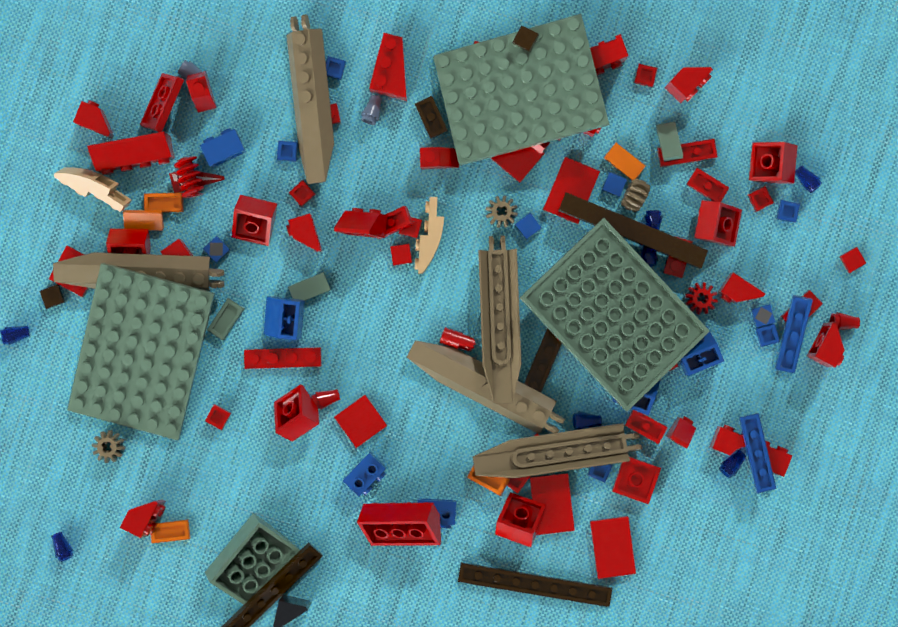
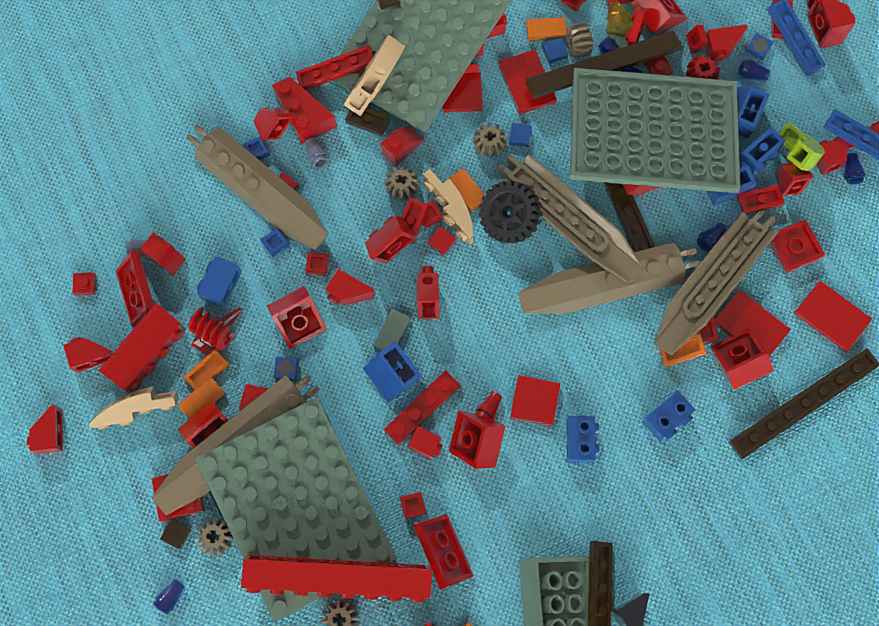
camera: 40 degrees left, 15 degrees down
(23, 153) = (47, 432): none -> red slope
(67, 322) = (209, 544): none -> dark tan gear
(125, 421) = (336, 577): none -> red brick
(133, 63) = (84, 284): none -> red plate
(209, 464) = (443, 551): none -> red tile
(225, 319) = (344, 419): sand green tile -> none
(262, 384) = (425, 443): none -> red brick
(350, 290) = (428, 293): none -> red torso
(361, 60) = (272, 122): none -> red slope
(400, 524) = (652, 449): red slope -> none
(405, 191) = (406, 177): none -> dark tan gear
(442, 58) = (335, 68): none -> red tile
(452, 233) = (468, 189): none -> orange tile
(457, 340) = (550, 265): red hinge -> none
(460, 95) = (374, 75): none -> tan slope
(474, 284) = (524, 217): none -> black wheel
(600, 472) = (762, 267): blue tile -> none
(679, 394) = (763, 150): none -> blue brick
(681, 208) = (618, 20): none -> clear yellow slope
(691, 219) = (638, 19): none -> red plate
(710, 421) = (804, 148): none -> lime arch
(722, 270) = (697, 38): none -> red plate
(737, 329) = (752, 70): none -> clear blue cone
(767, 335) = (777, 57): blue tile -> none

